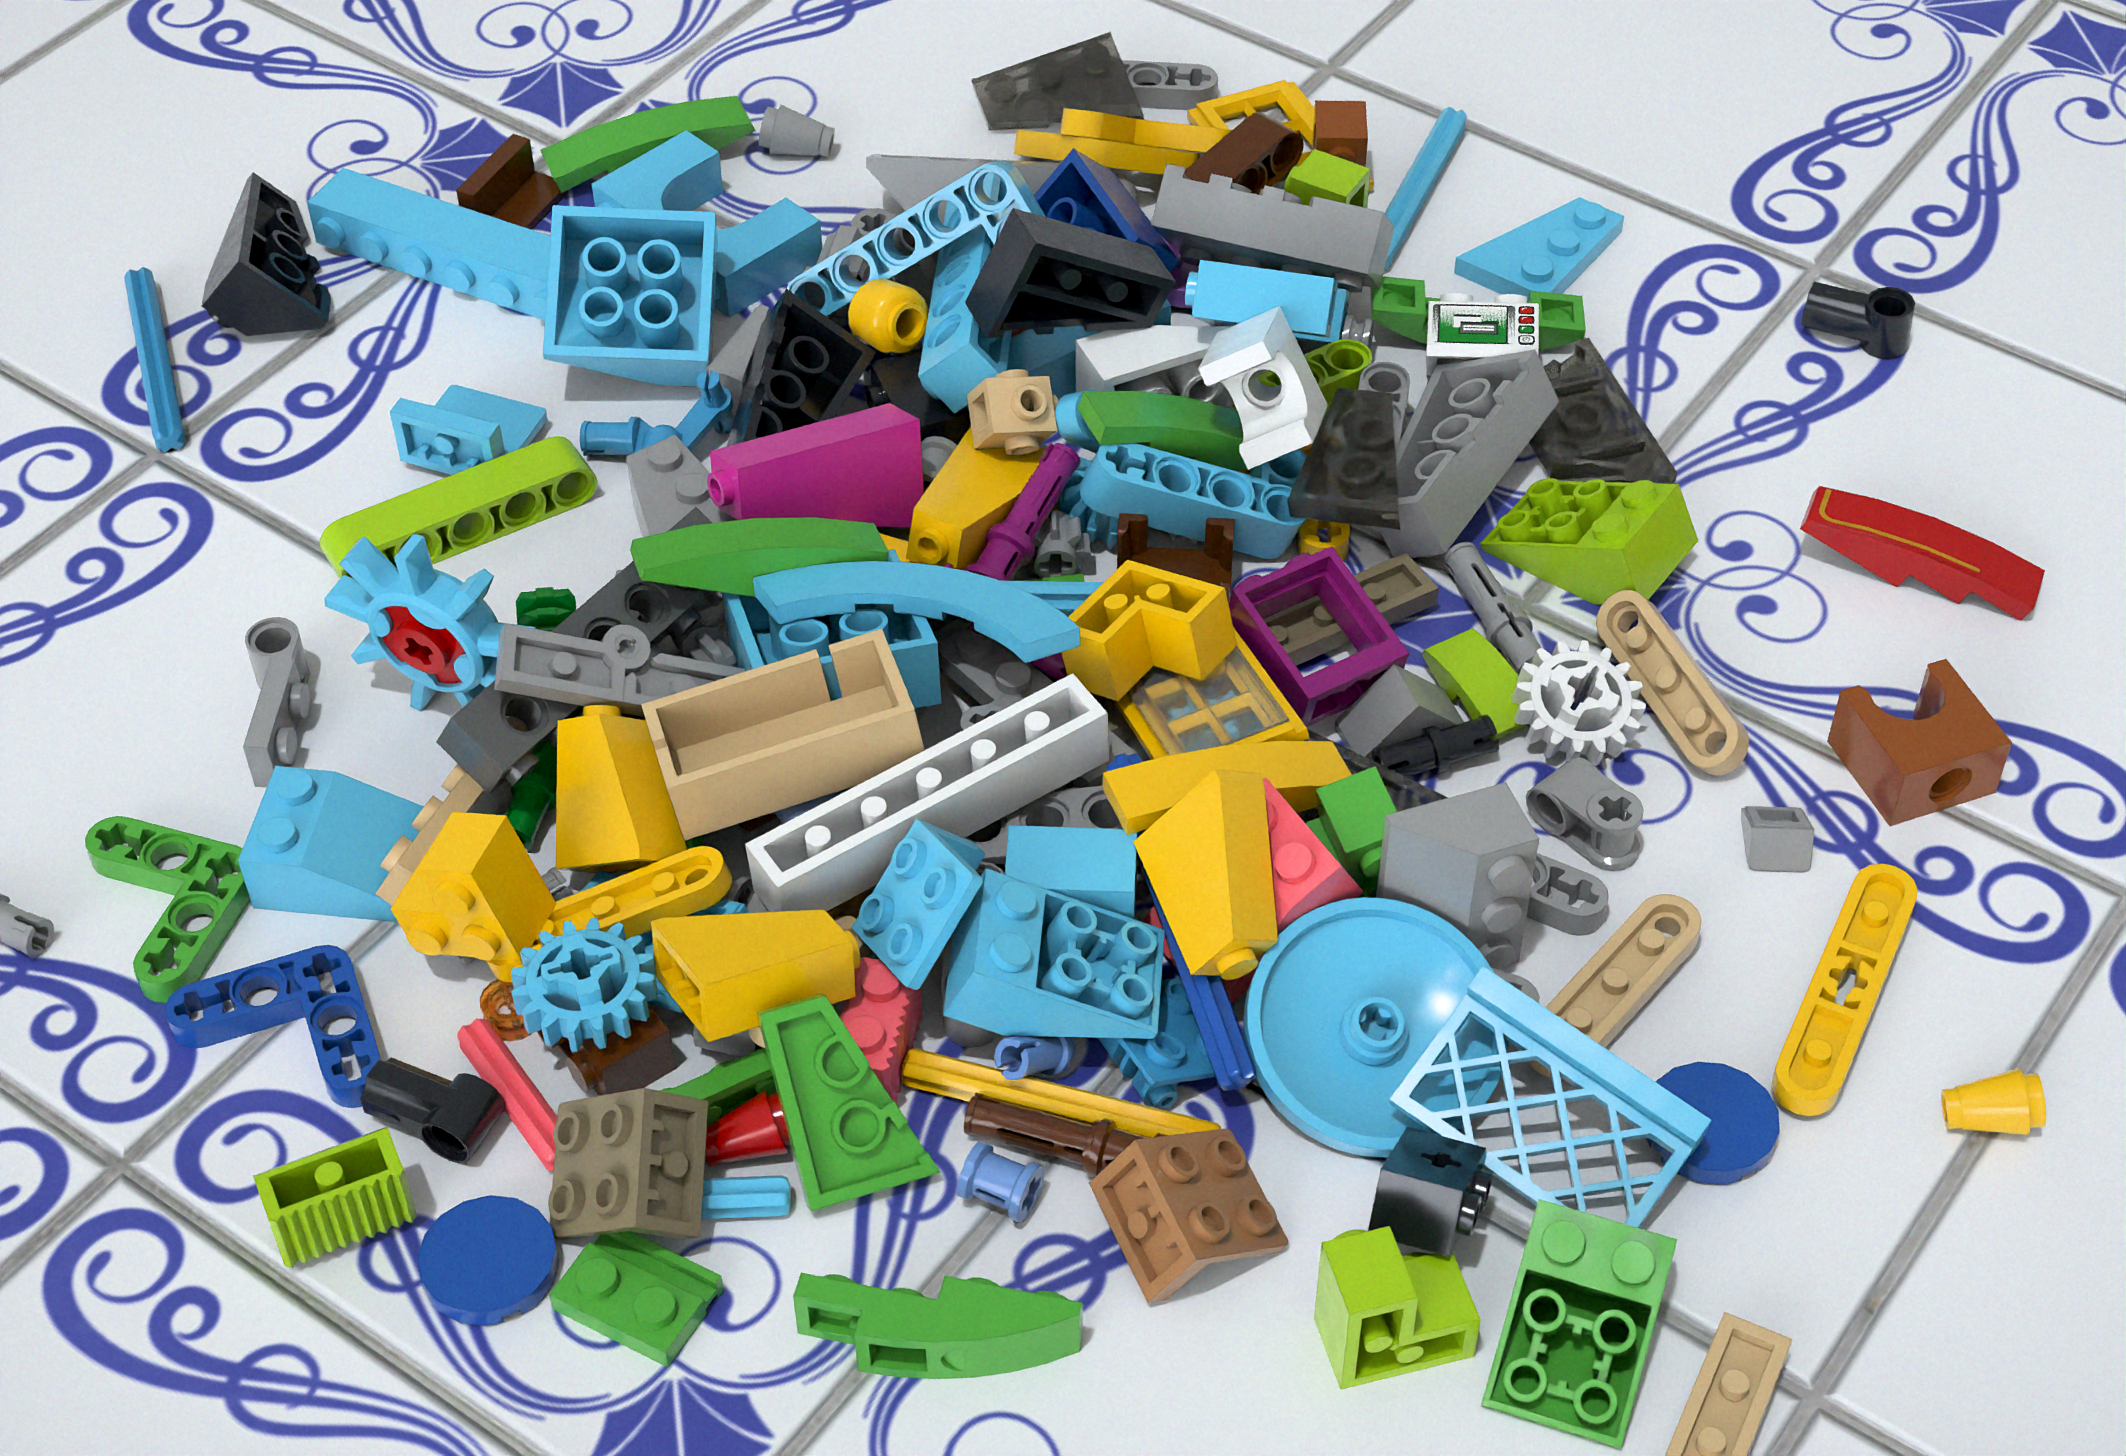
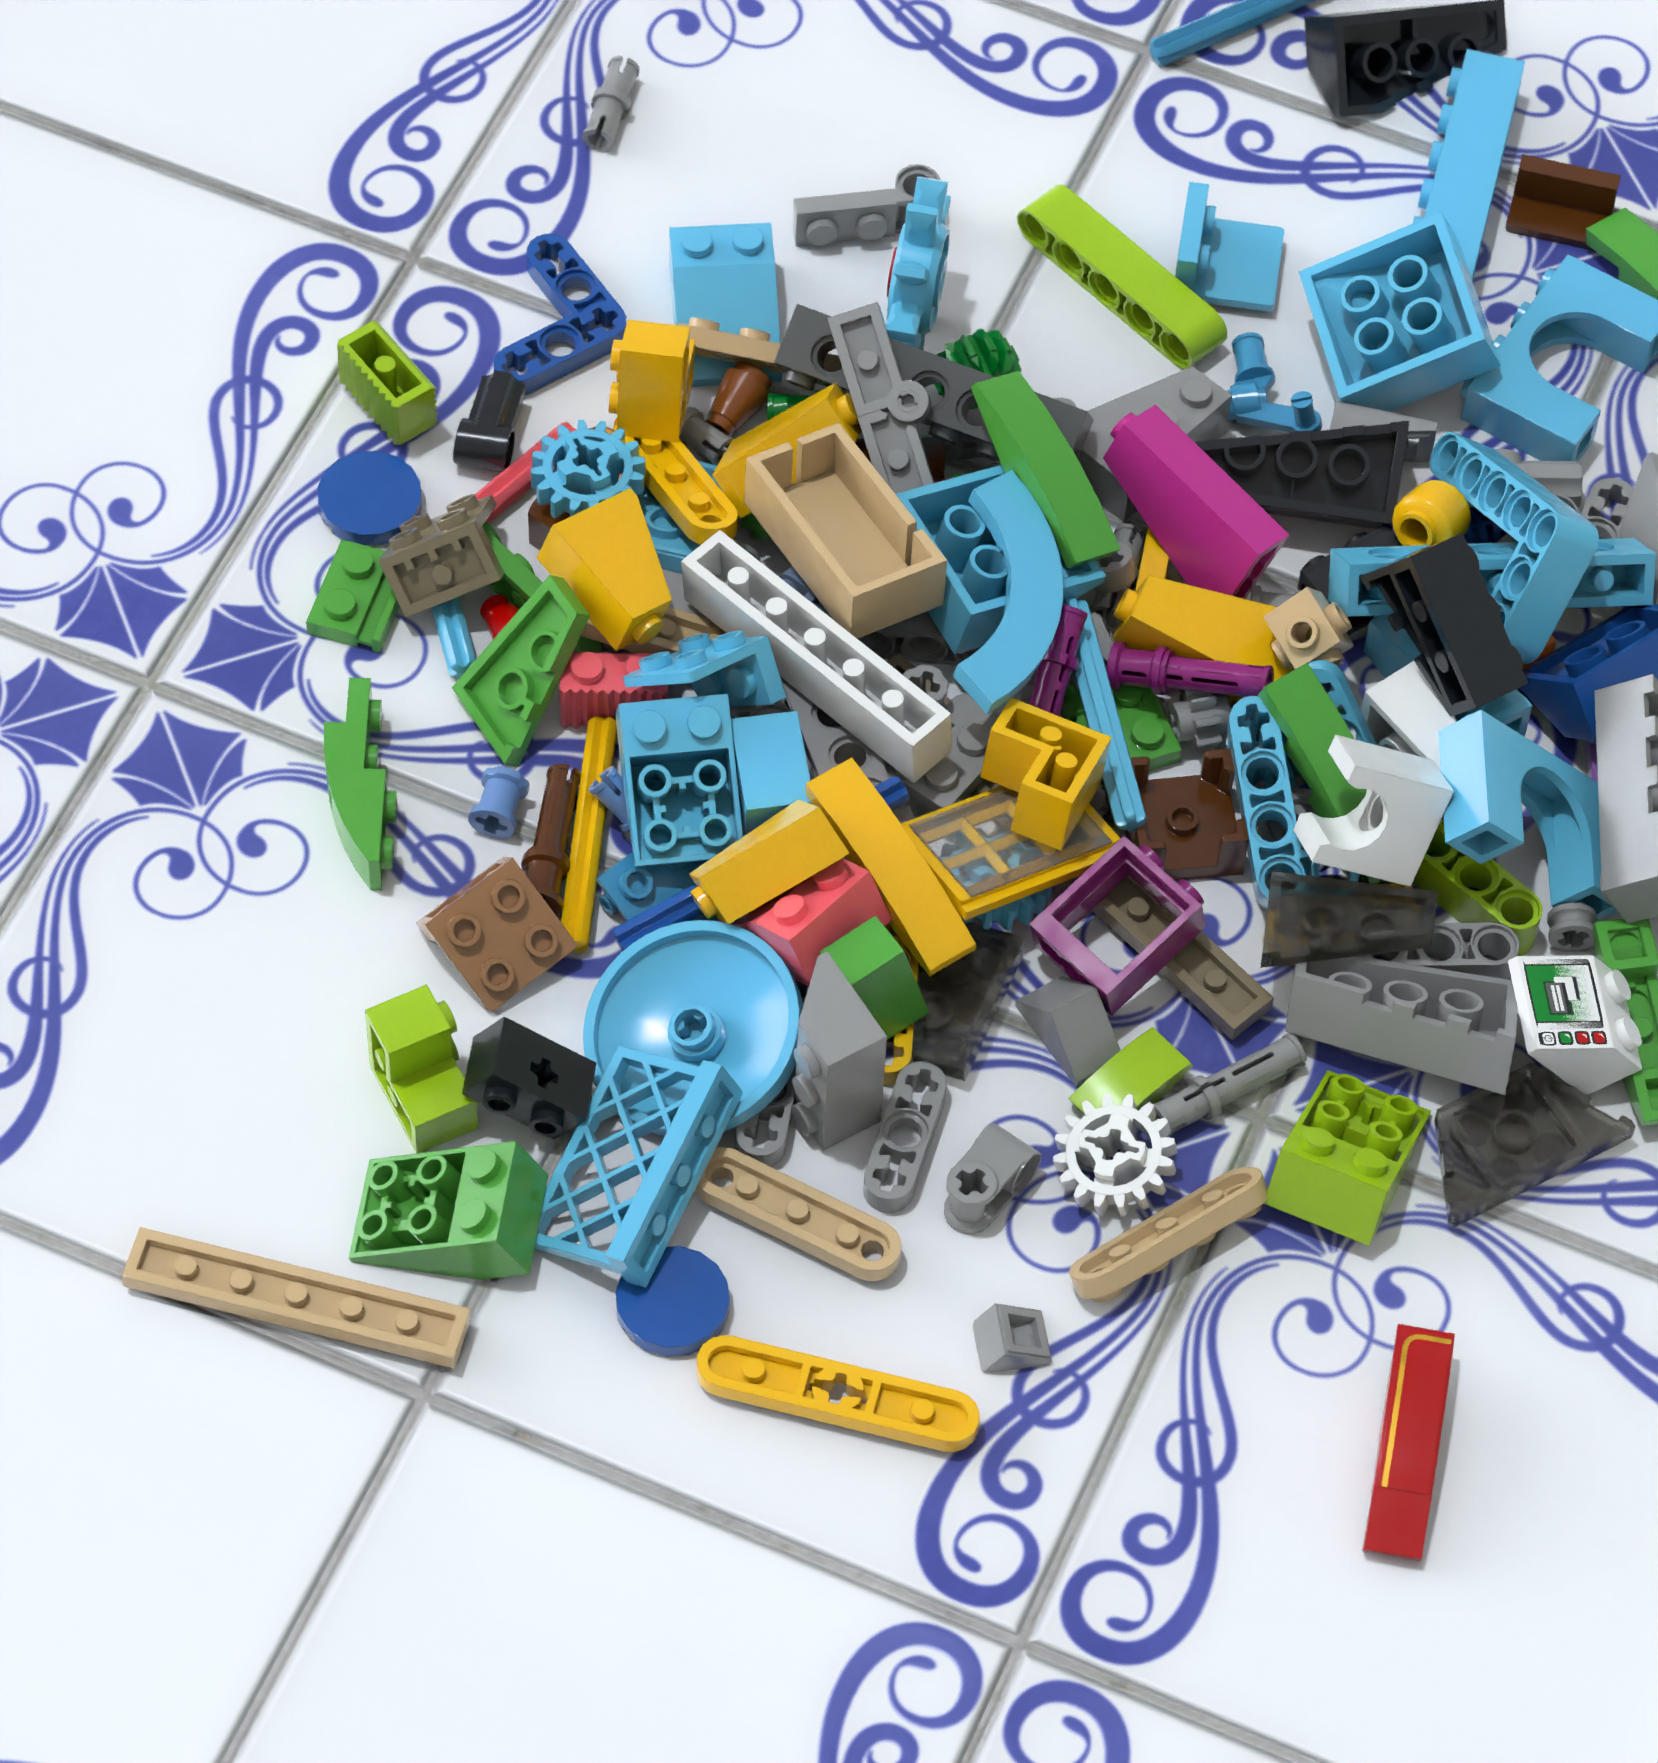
camera: 75 degrees right, 10 degrees up
(193, 891) = (655, 219): bright green beam -> none
(1439, 747) = (1036, 1052): black pin -> none
(1925, 763) = (1119, 1456): dark orange piece -> none
(1996, 1103) = (732, 1515): yellow cone -> none

